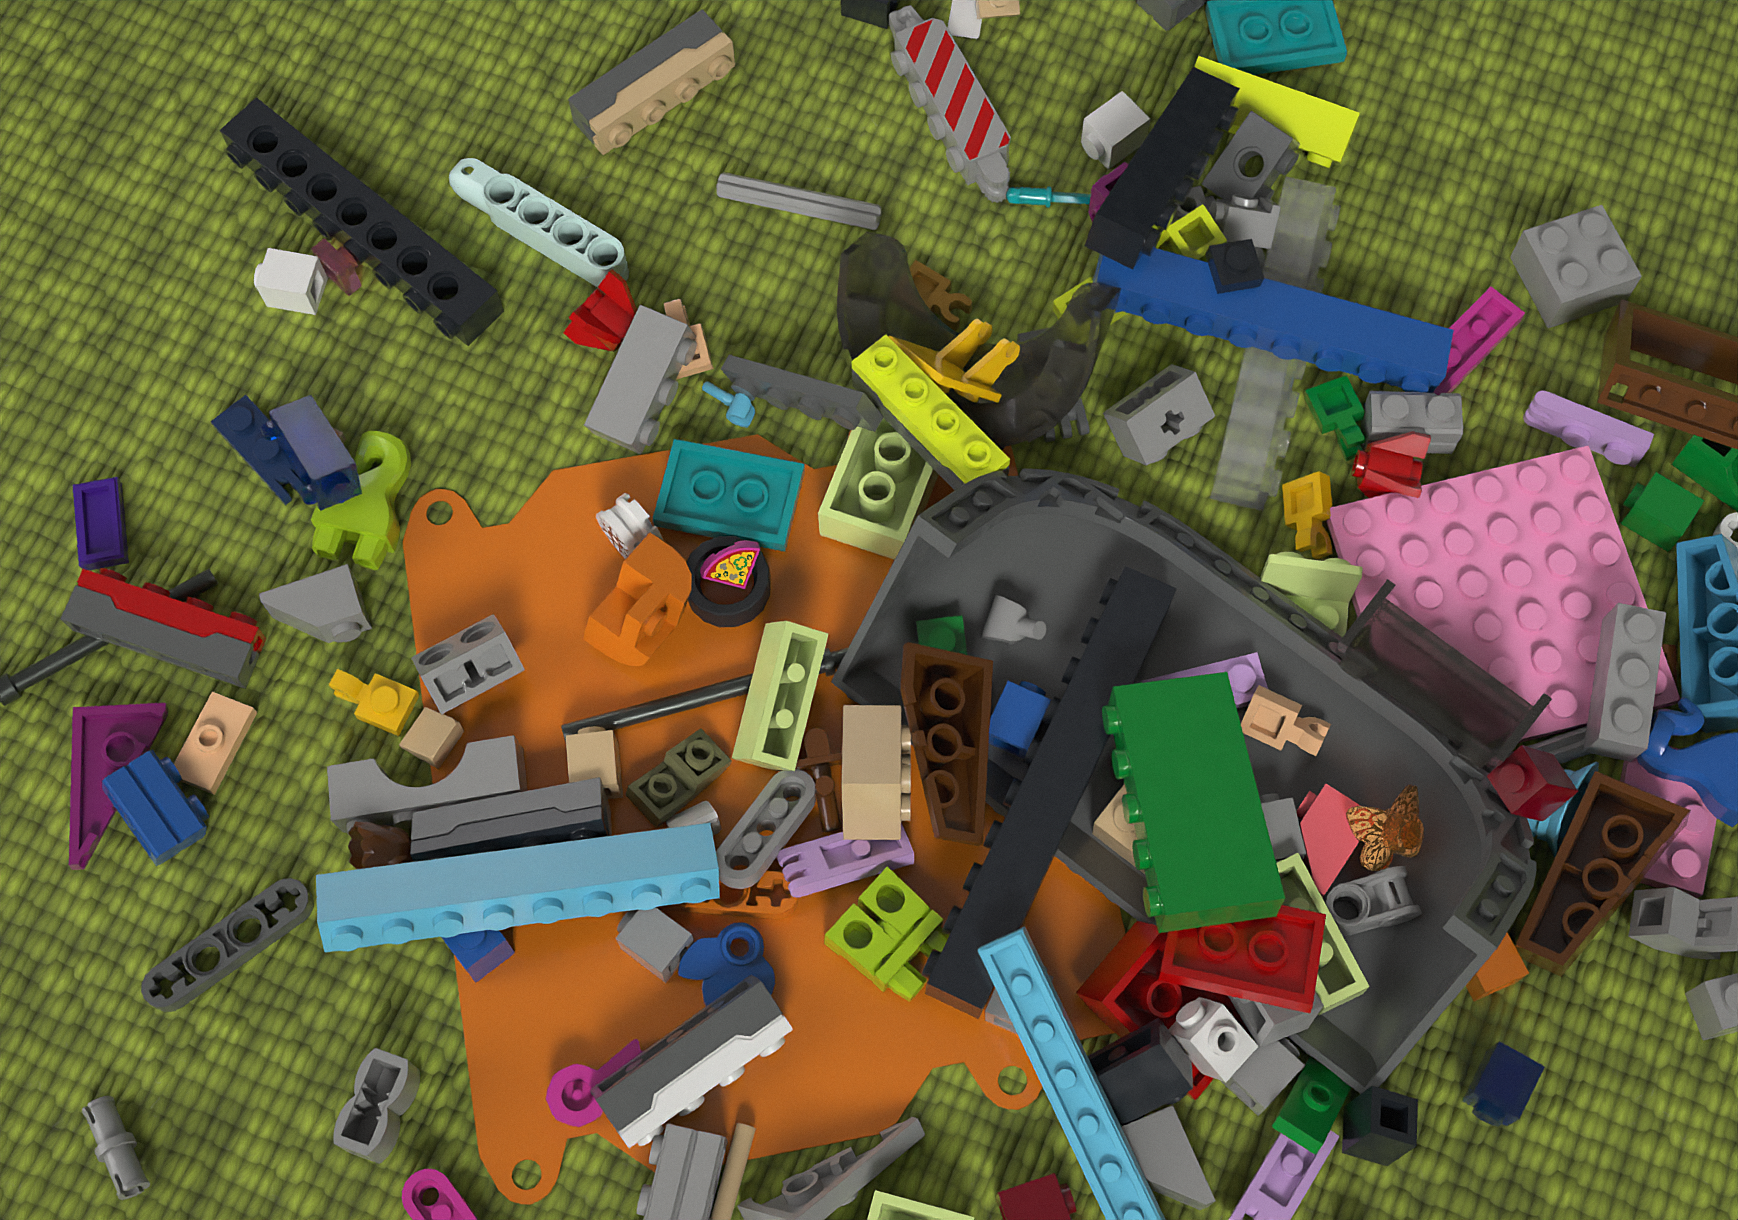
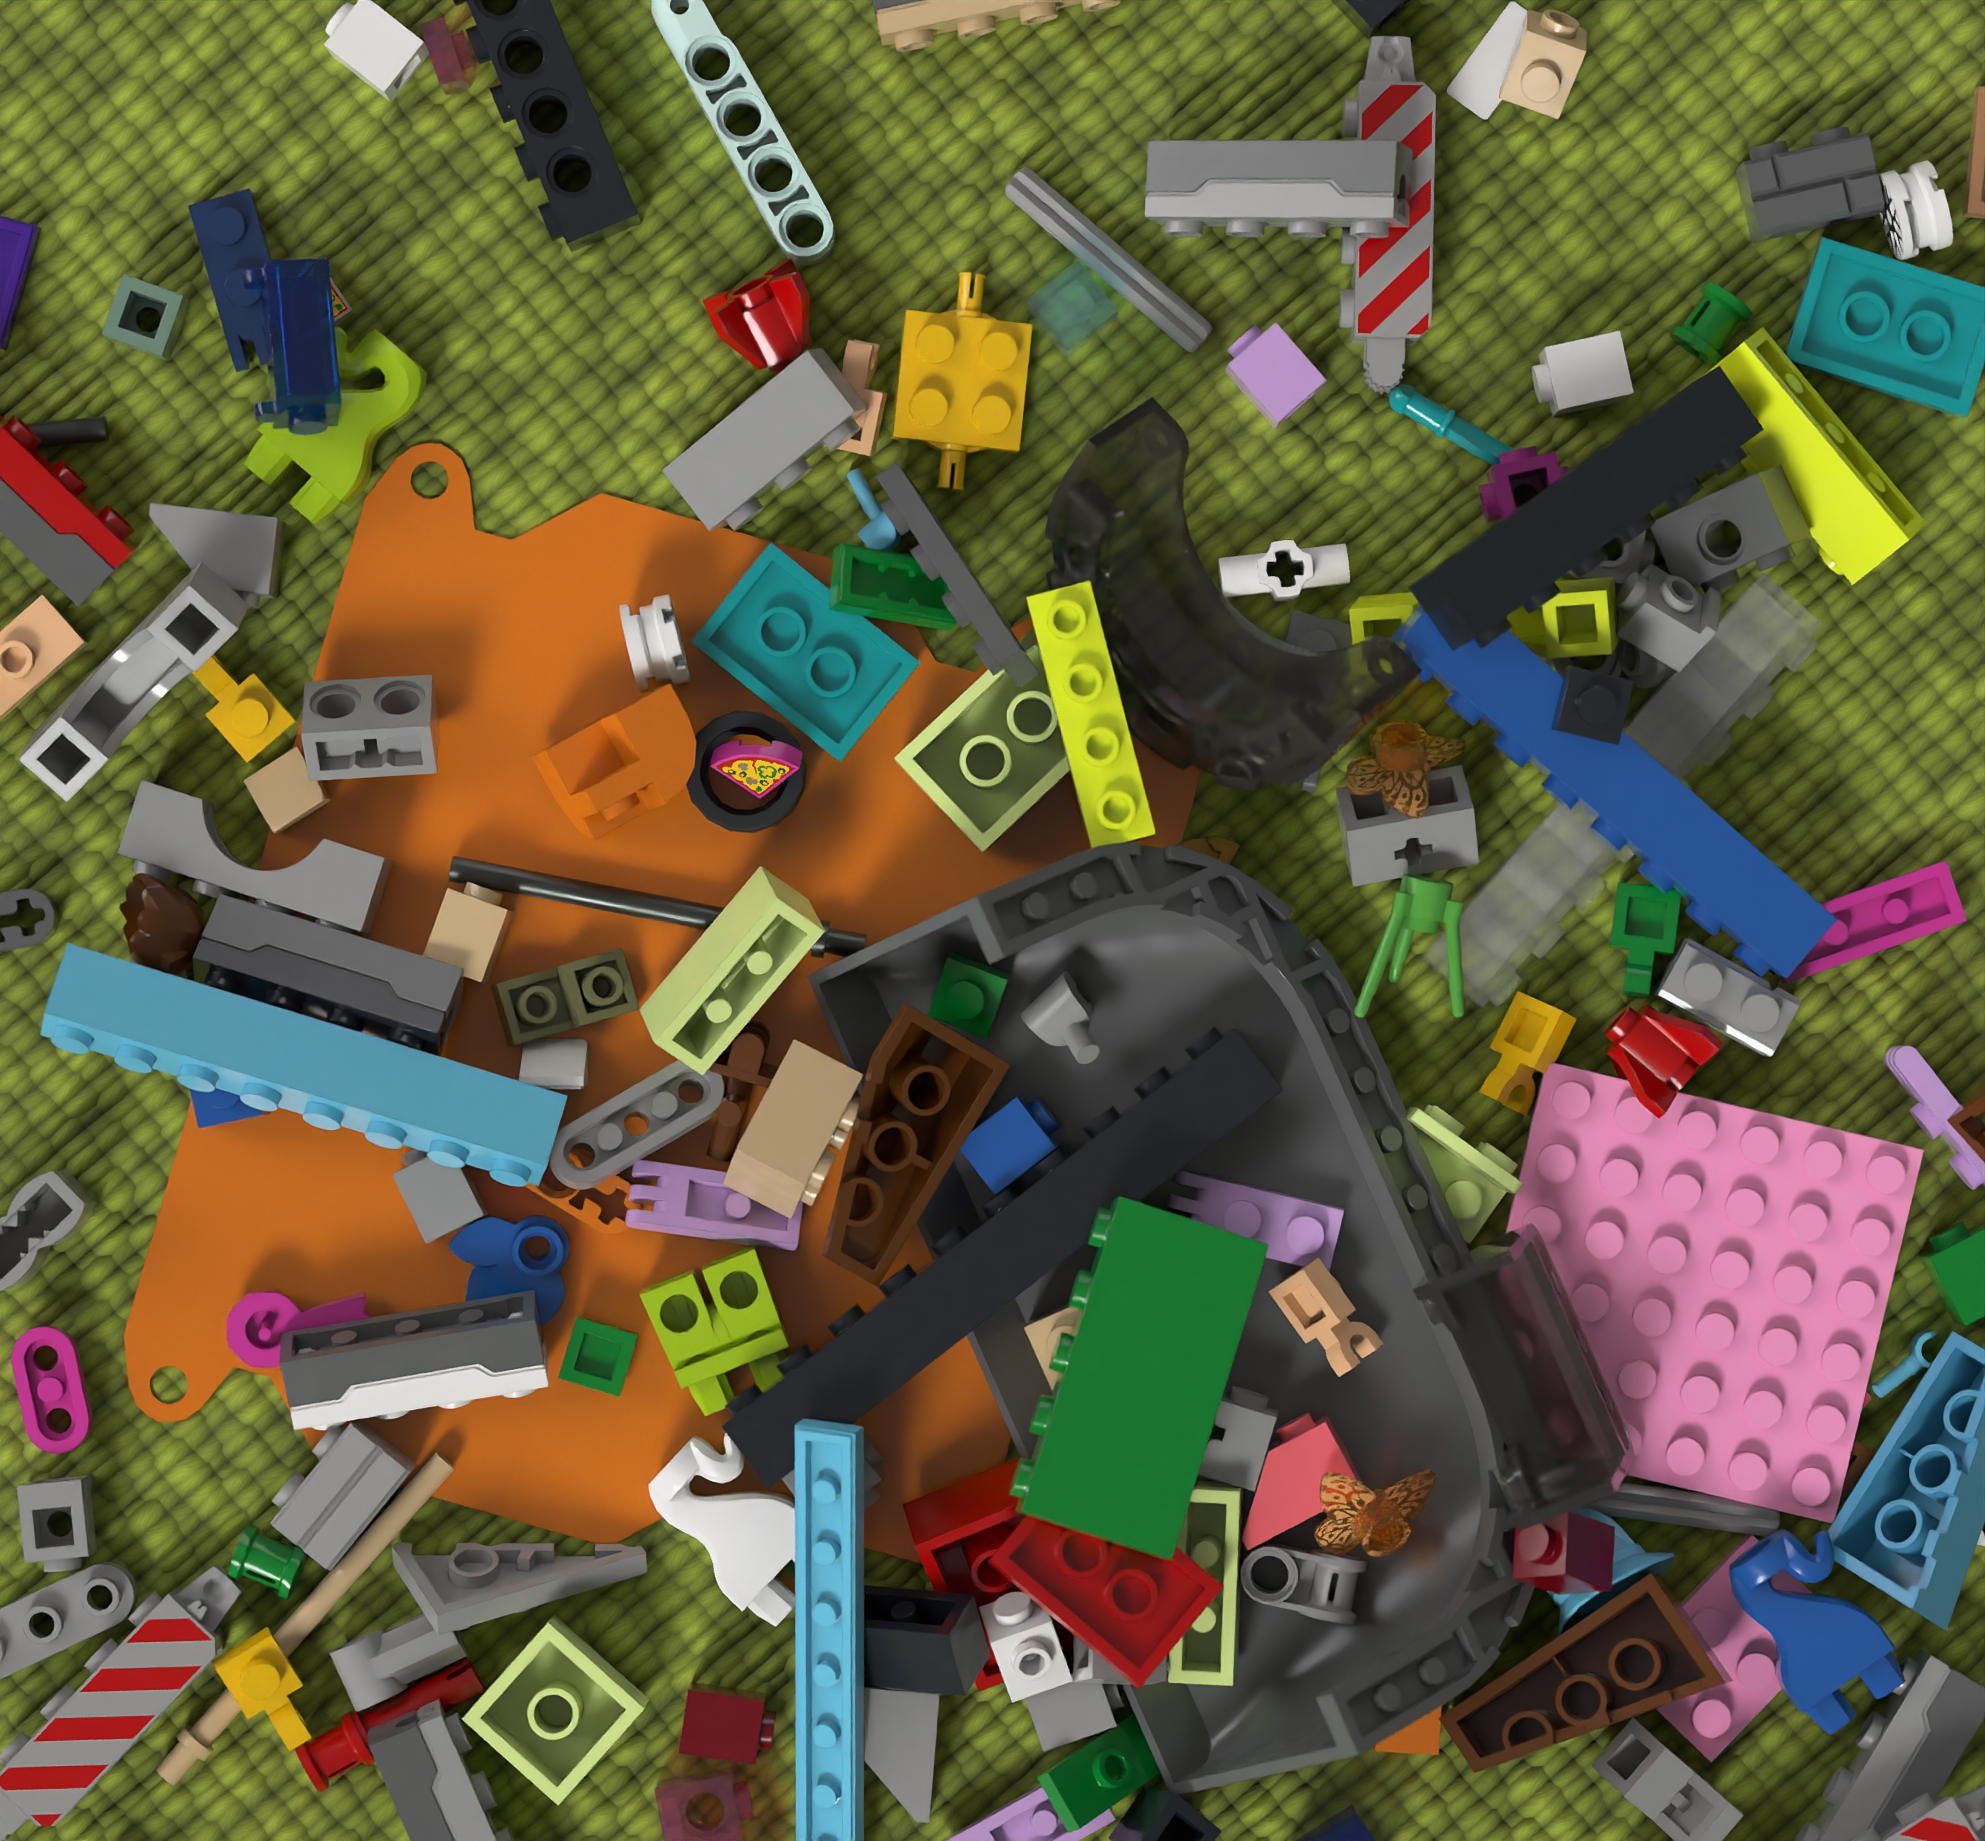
camera: 25 degrees right, 20 degrees up
(201, 490) = (131, 302): none -> sand green plate
(294, 704) = (132, 680): none -> light grey arch
(745, 304) = (961, 381): none -> yellow plate
(764, 430) = (887, 588): none -> green plate
(791, 230) = (1072, 309): none -> clear light blue brick
(817, 998) = (598, 1356): none -> green plate
(878, 102) = (1278, 185): none -> piece
(932, 212) = (1273, 373): none -> lavender brick
(935, 293) = (1207, 494): pearl gold plate -> none
(947, 366) = (1152, 641): yellow plate -> none
(977, 1066) = (743, 1531): none -> white hips
(1004, 308) = (1318, 567): none -> white axle
(1134, 378) = (1401, 765): none -> clear orange animal
(1171, 71) = (1711, 323): none -> green bush
(1196, 454) = (1420, 908): none -> bright green plant
(1624, 682) = (1763, 1480): light grey brick -> none
(1661, 581) = (1910, 1365): none -> medium azure hand

